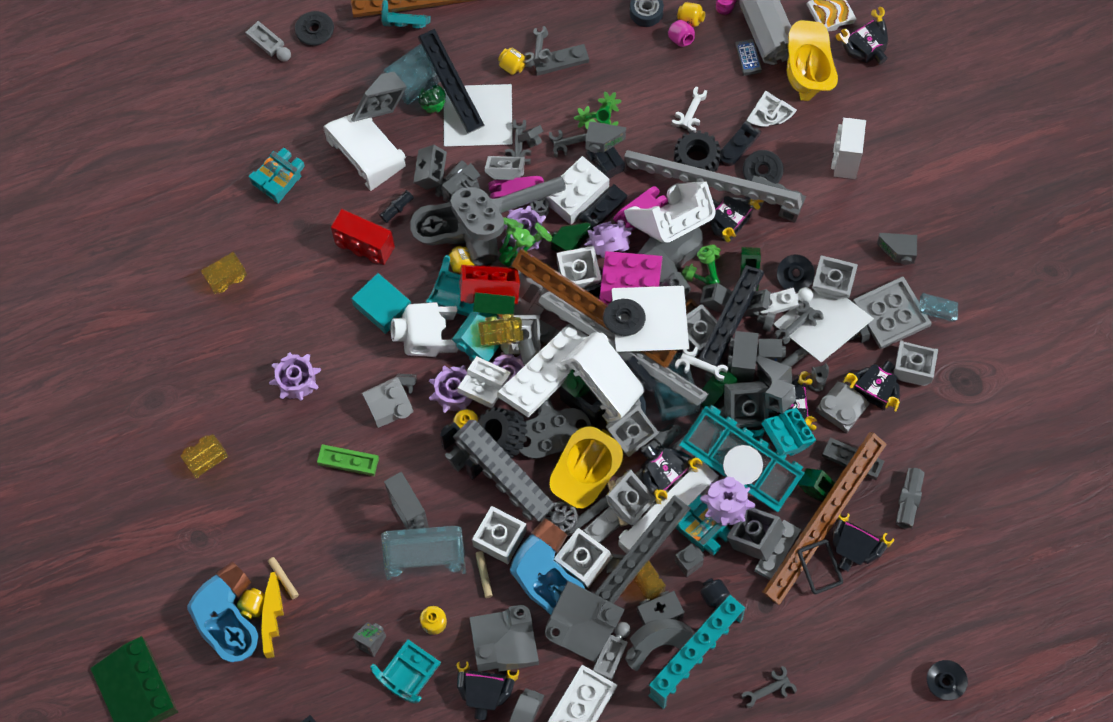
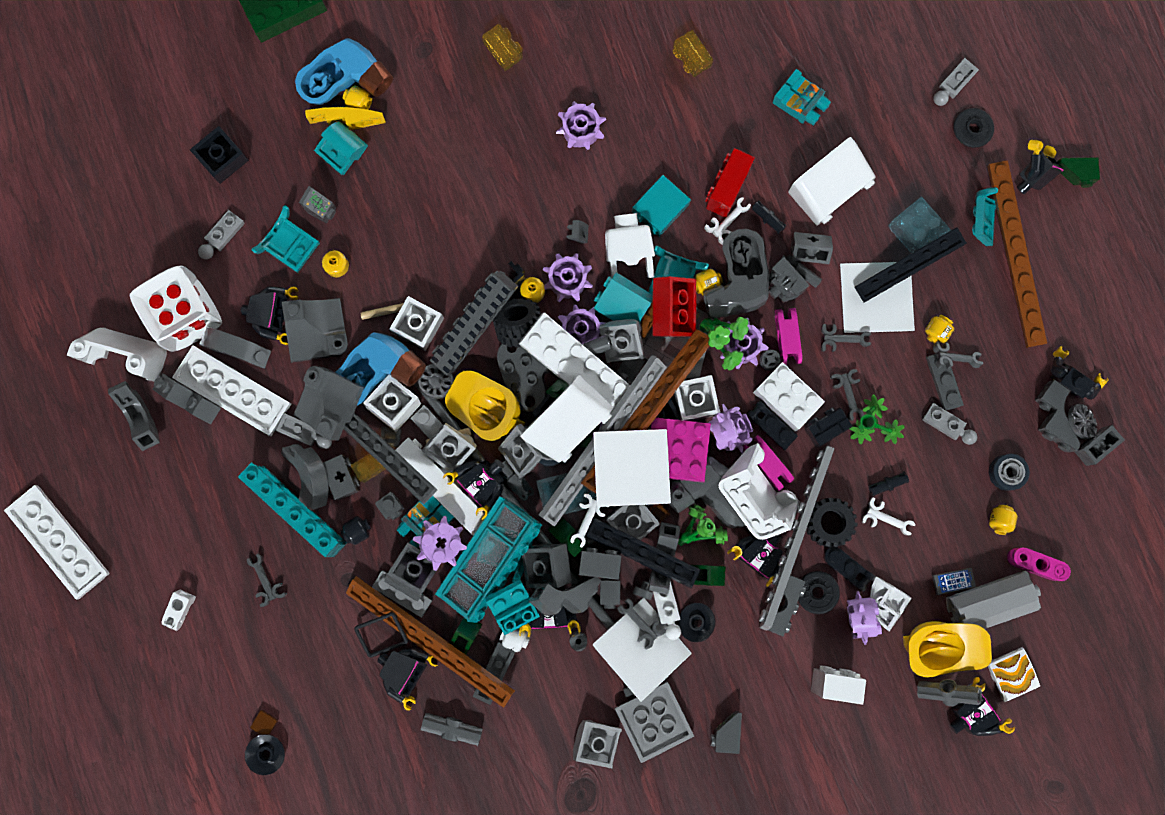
camera: 85 degrees right, 15 degrees up
(283, 578) = (384, 126): tan piece -> none
(305, 618) = (340, 147): none -> teal brick
(348, 460) = (497, 180): bright green plate -> none
(380, 97) = (887, 193): dark grey slope -> none
(388, 402) = (554, 214): light grey slope -> none
(405, 252) = (719, 230): none -> white bar
(406, 502) = (441, 233): dark grey window -> none
(422, 549) = (393, 252): clear light blue windscreen -> none
(433, 99) = (889, 248): dark green piece -> none
(482, 213) = (749, 295): dark grey piece -> none
(483, 382) = (568, 304): white slope -> none
(493, 303) = (648, 310): dark green slope -> none
(500, 331) = (618, 317): clear yellow brick -> none
(505, 167) = (811, 322): light grey slope -> none
(531, 136) = (850, 350): dark grey tile -> none
(569, 237) = (733, 390): dark green slope -> none
(602, 57) = (949, 424): none -> light grey plate
(603, 136) = (845, 422): dark grey slope -> none
(624, 306) = (618, 443): black wheel -> none
(641, 373) = (572, 458): black axle -> none
(658, 108) = (888, 483): none -> black pin
(681, 33) = (979, 509): dark pink head -> none
(743, 464) = (476, 559): white tile -> none
(785, 128) = (863, 618): none -> lavender brick
(822, 438) = (514, 641): none -> white head
(834, 277) = (690, 663): light grey slope -> none
(842, 406) = (552, 665): light grey slope -> none
(850, 59) = (949, 692): none -> dark grey piece
(877, 385) = (571, 702): torso -> none
(915, 685) = (264, 723): none -> reddish brown tile
(938, 307) = (659, 772): clear light blue plate -> none

